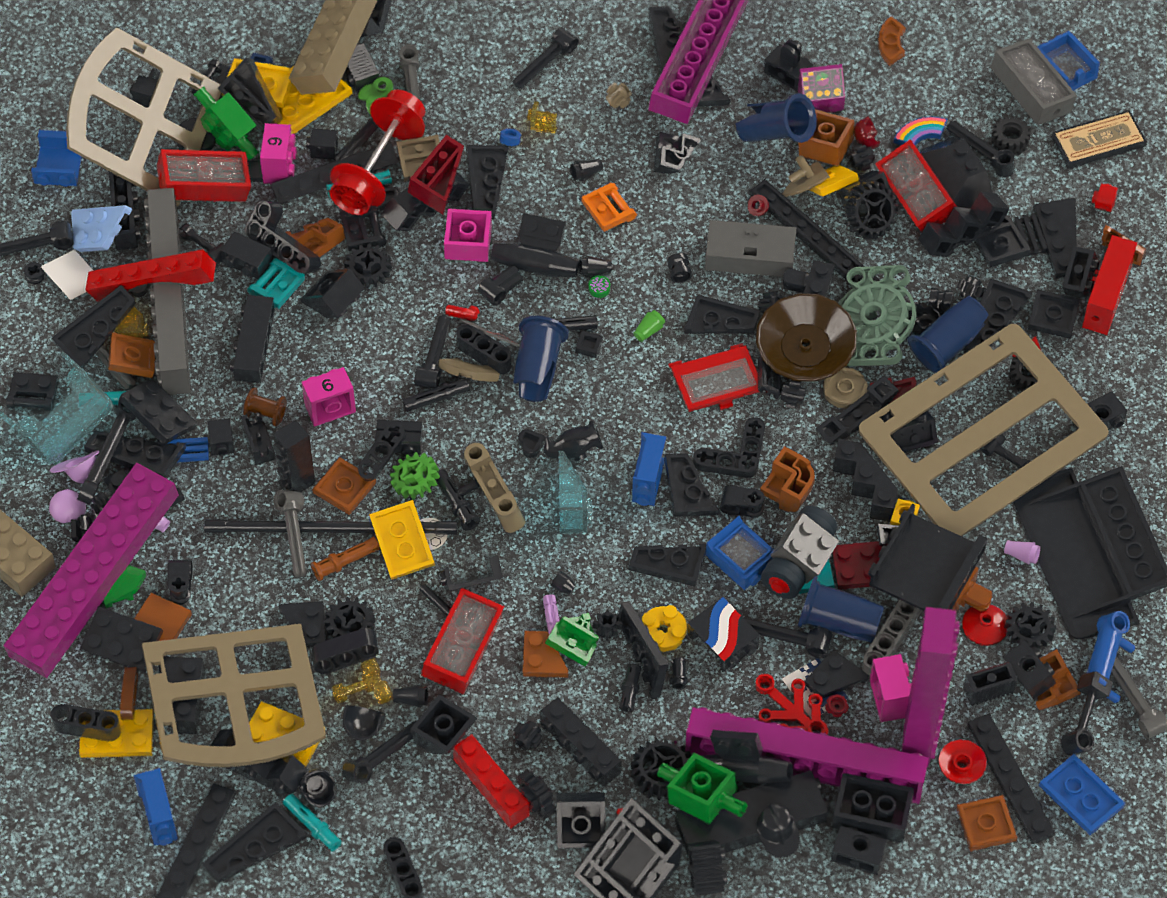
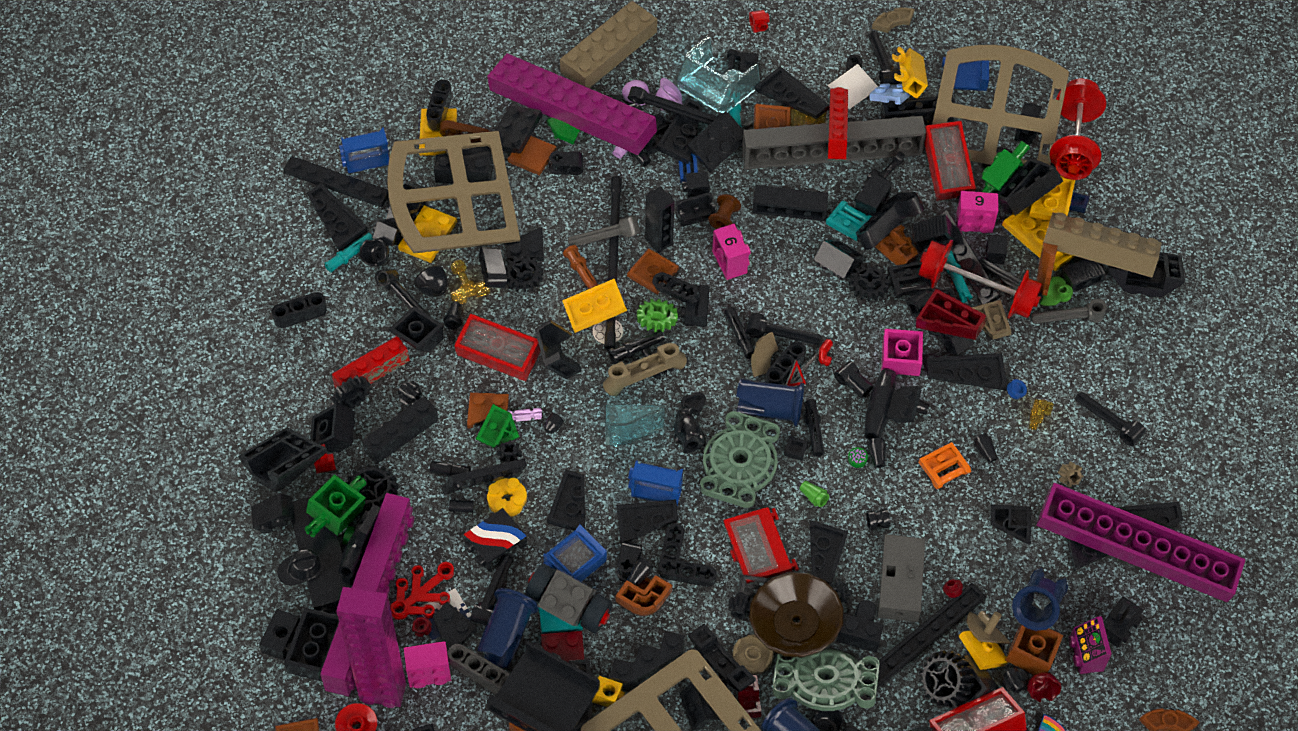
camera: 90 degrees right, 0 degrees up
(70, 203) = (912, 71): none -> yellow brick
(217, 46) = (1076, 154): none -> red piece
(303, 198) = (936, 229): none -> black brick
(355, 92) = (1046, 266): none -> dark orange slope
(598, 378) = (729, 446): none -> sand green piece
(766, 482) = (640, 571): none -> black cone

